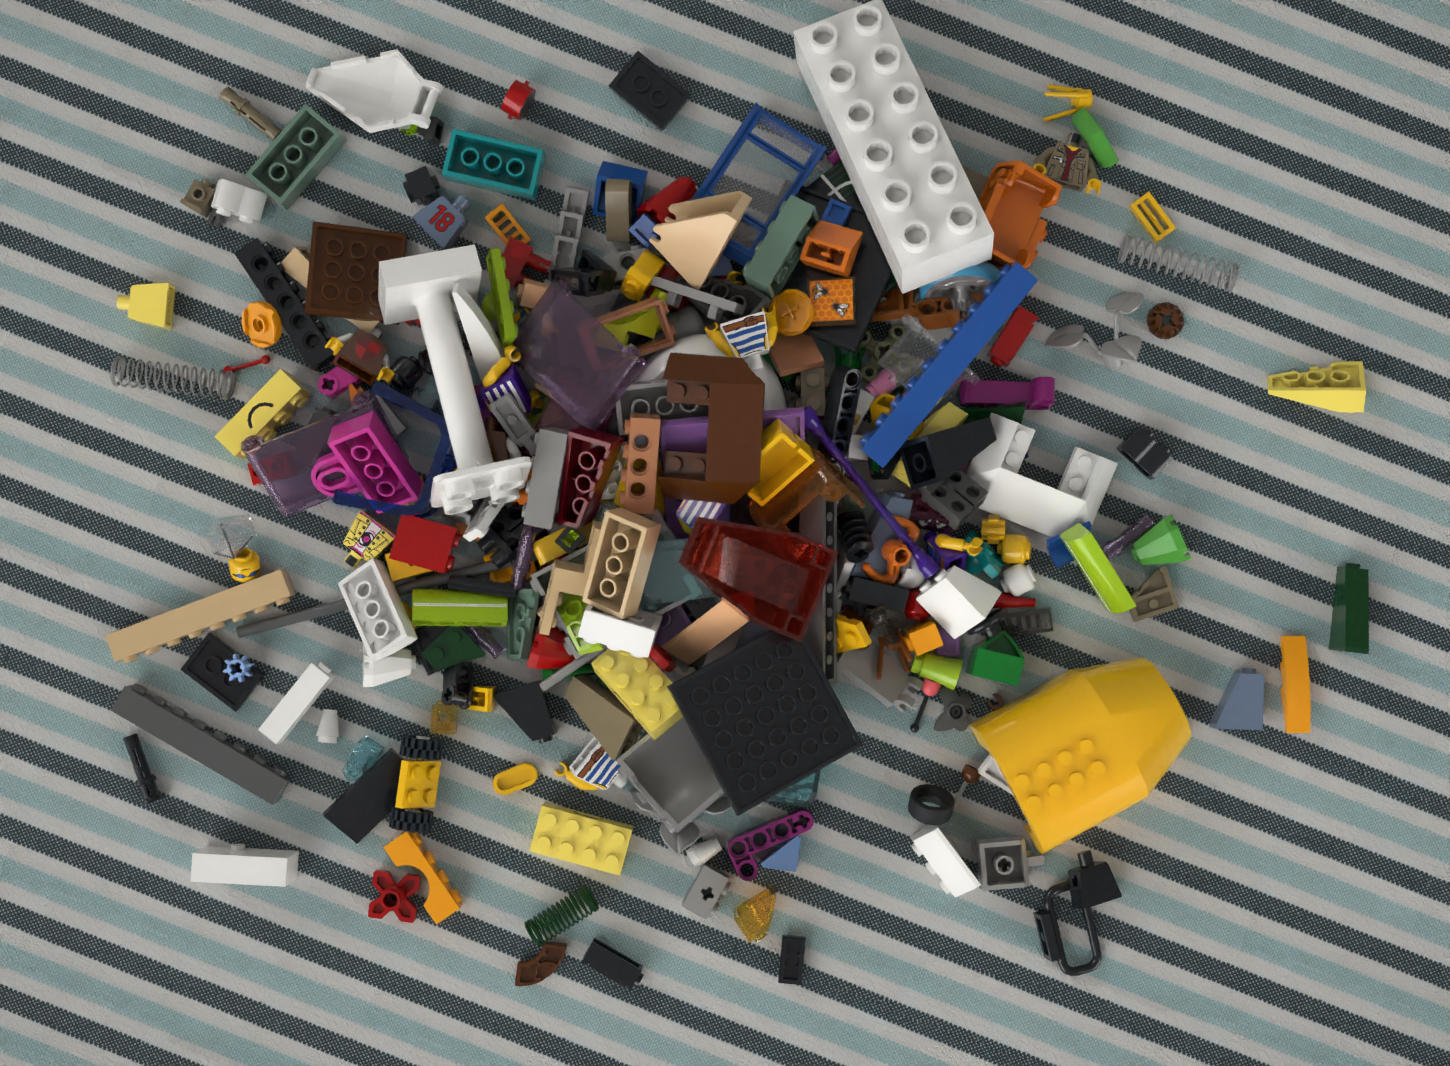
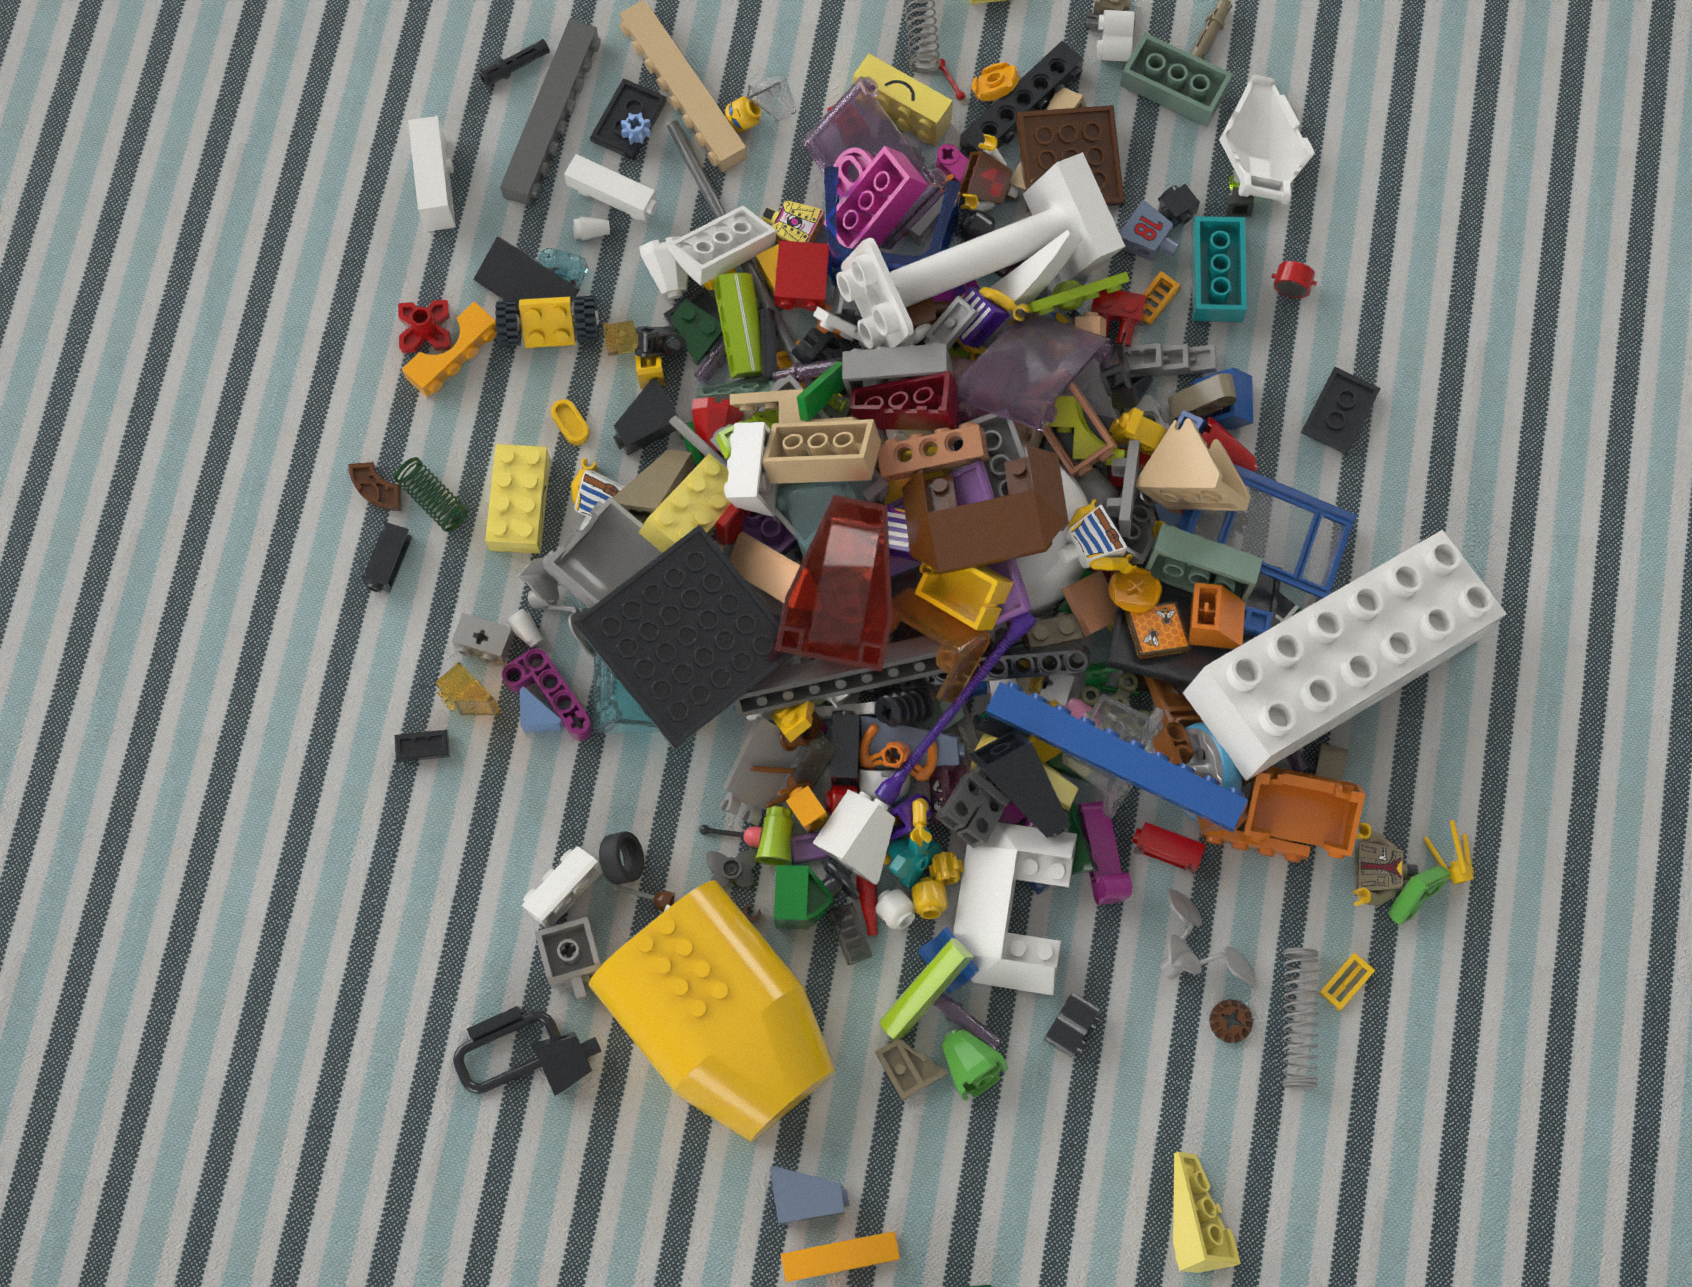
camera: 85 degrees right, 15 degrees down
(558, 551) = (819, 392): none -> green tile

